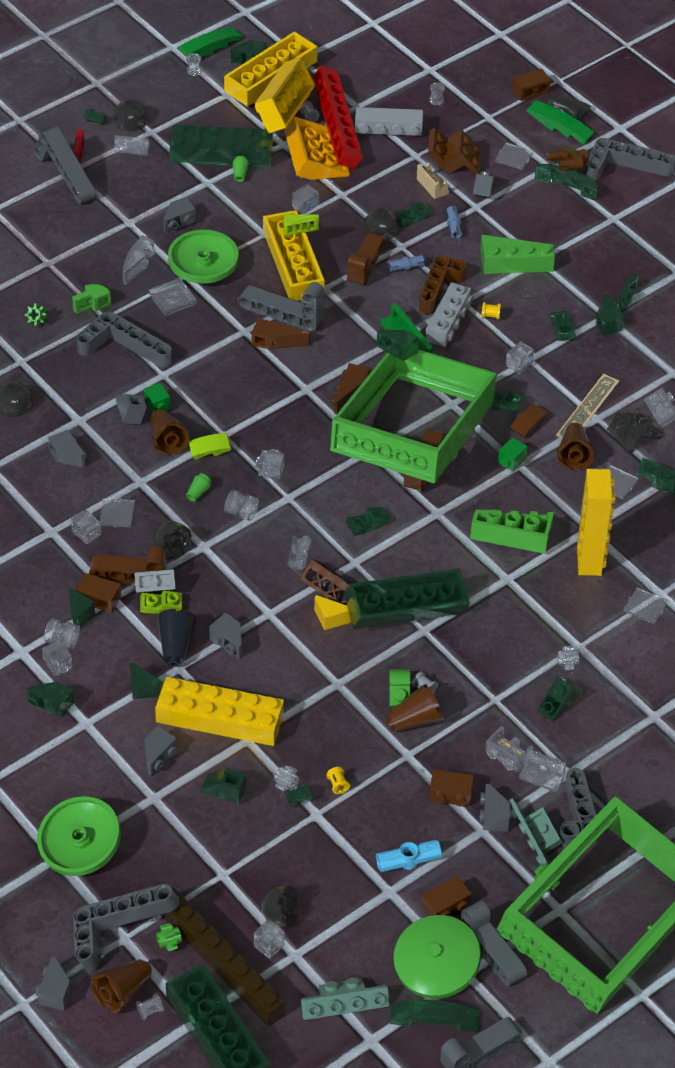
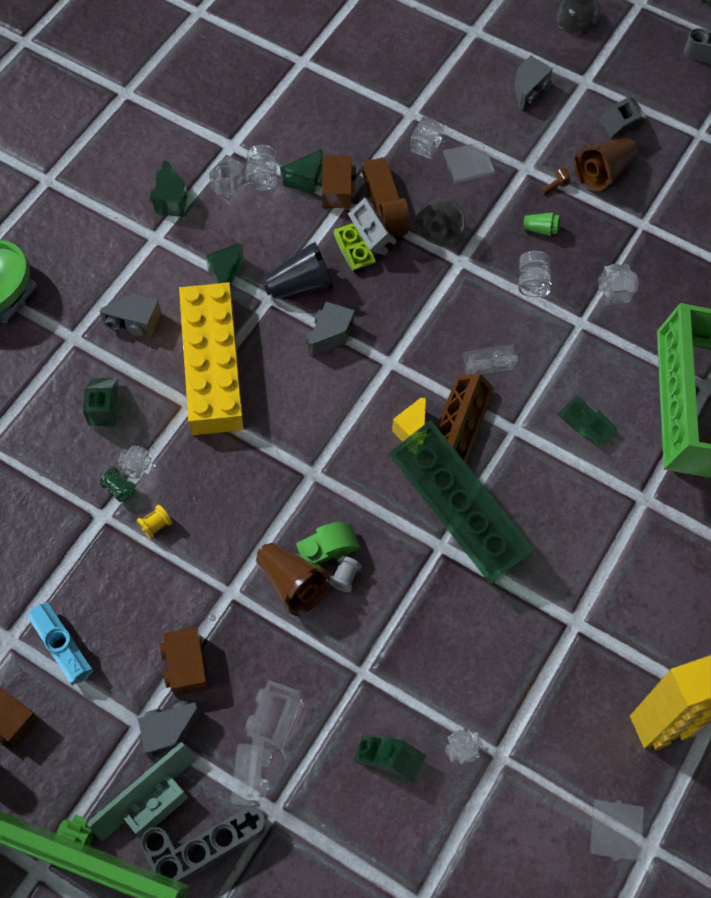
camera: 70 degrees right, 15 degrees up
(156, 397) = (653, 137): green brick -> none
(162, 462) = (562, 179): none -> reddish brown hand
(214, 444) = (613, 212): lime slope -> none
(513, 529) = (656, 603): bright green wedge -> none

